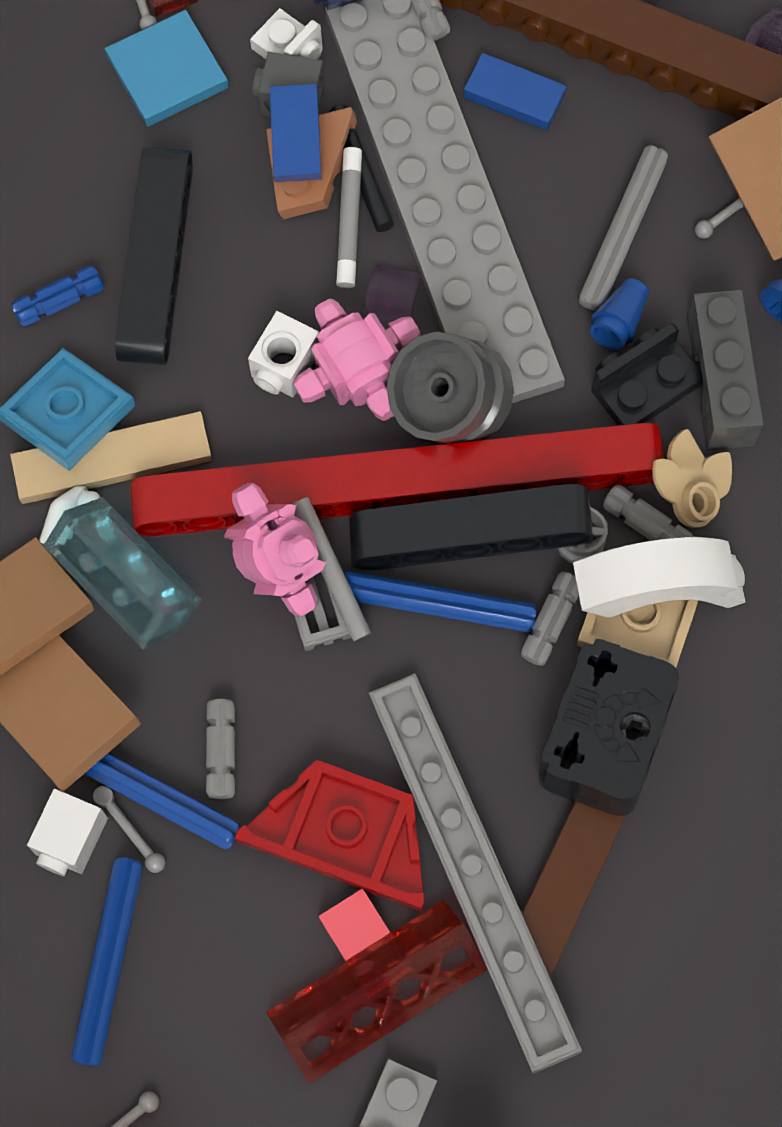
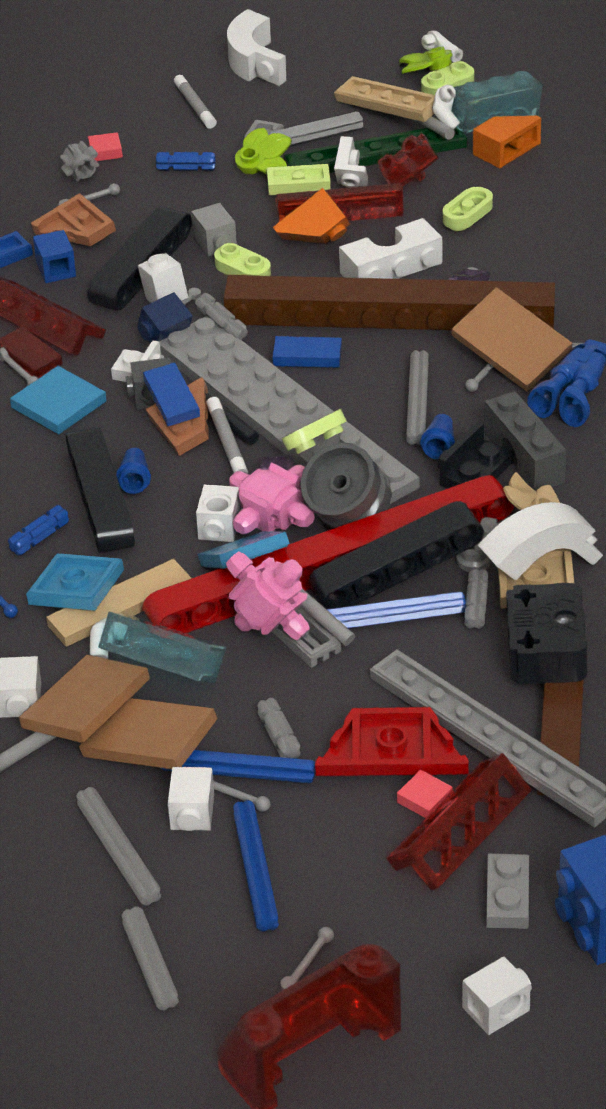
camera: 20 degrees left, 30 degrees down
(209, 237) = (133, 472): none -> blue cone
(286, 438) = (251, 546): none -> dark azure tile
(467, 262) = (303, 438): none -> yellowish green plate

